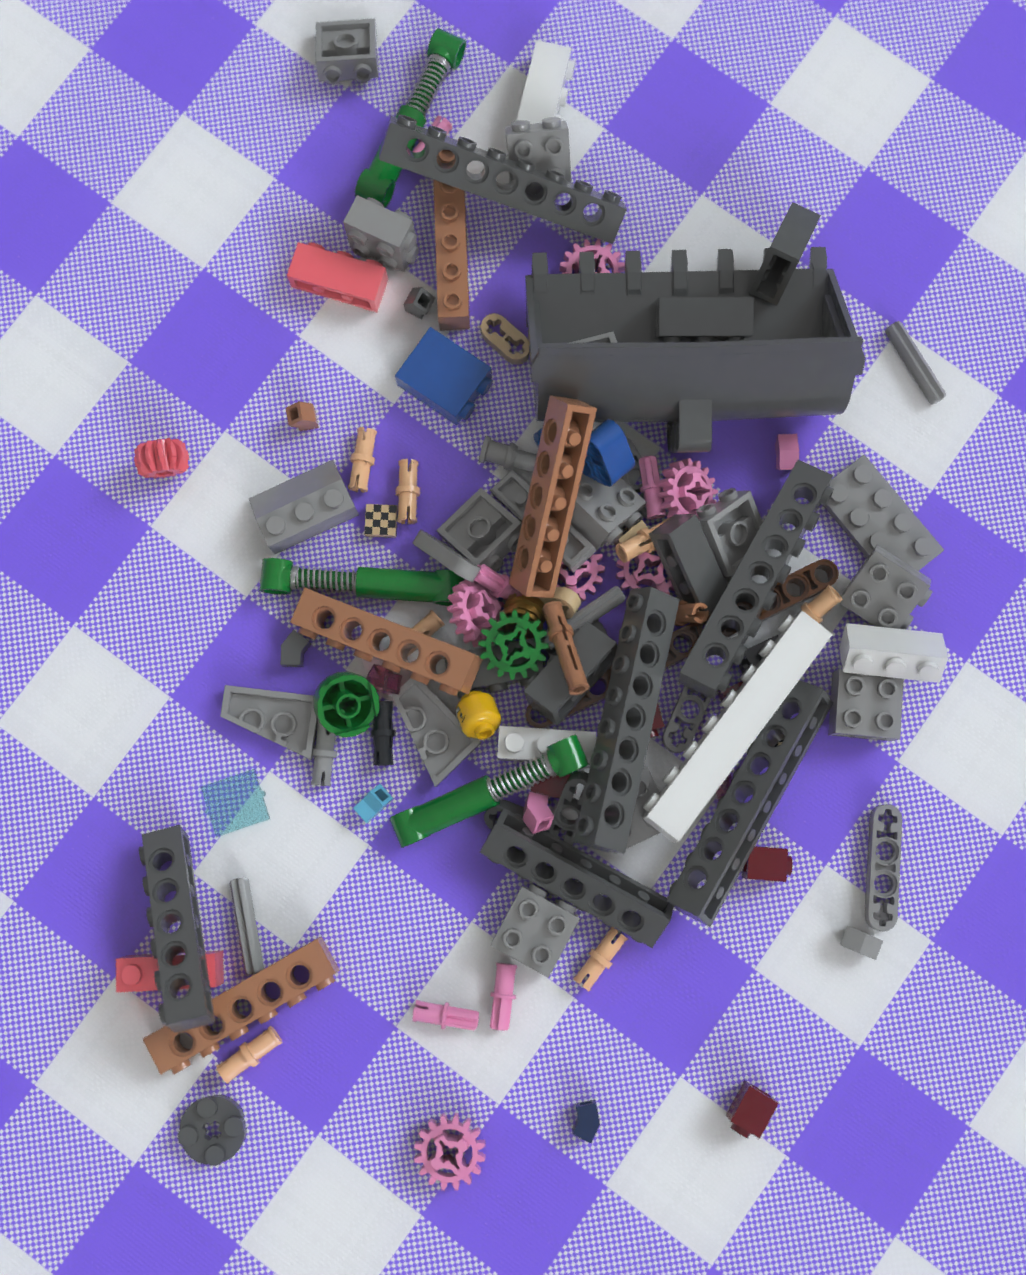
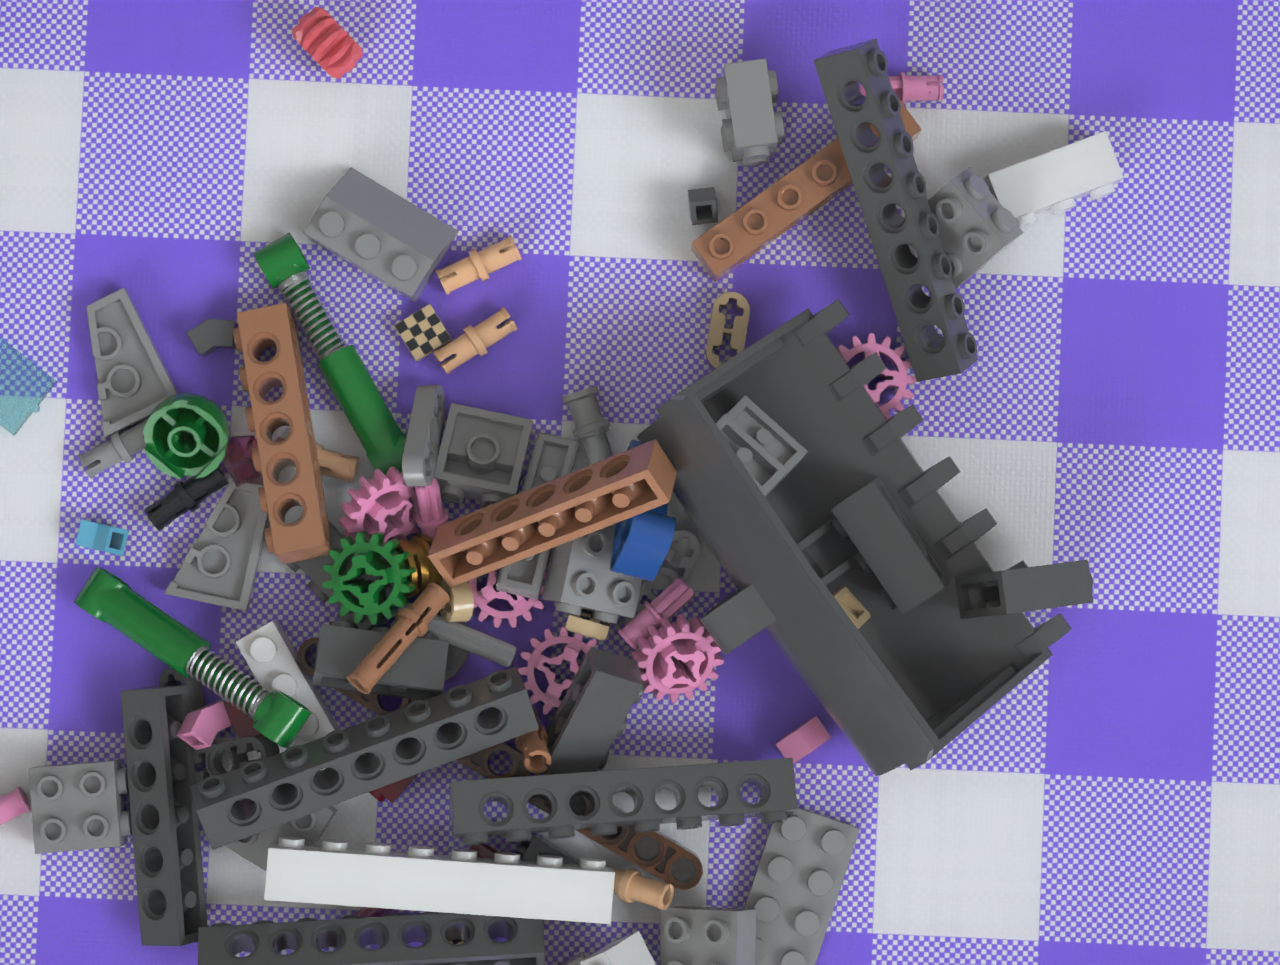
camera: 55 degrees right, 5 degrees up
(302, 416) = (482, 164): nougat piece -> none
(337, 276) = (673, 92): coral brick -> none
(443, 54) = (1024, 32): green piece -> none
(444, 376) = (634, 294): blue brick -> none
(478, 715) = (270, 589): yellow head -> none
(600, 958) = (95, 896): light nougat pin -> none
(631, 547) = (576, 641): light nougat pin -> none
(673, 727) = (406, 833): light grey beam -> none
(730, 527) = (665, 730): light grey plate -> none
(915, 362) = (1011, 819): light grey axle -> none

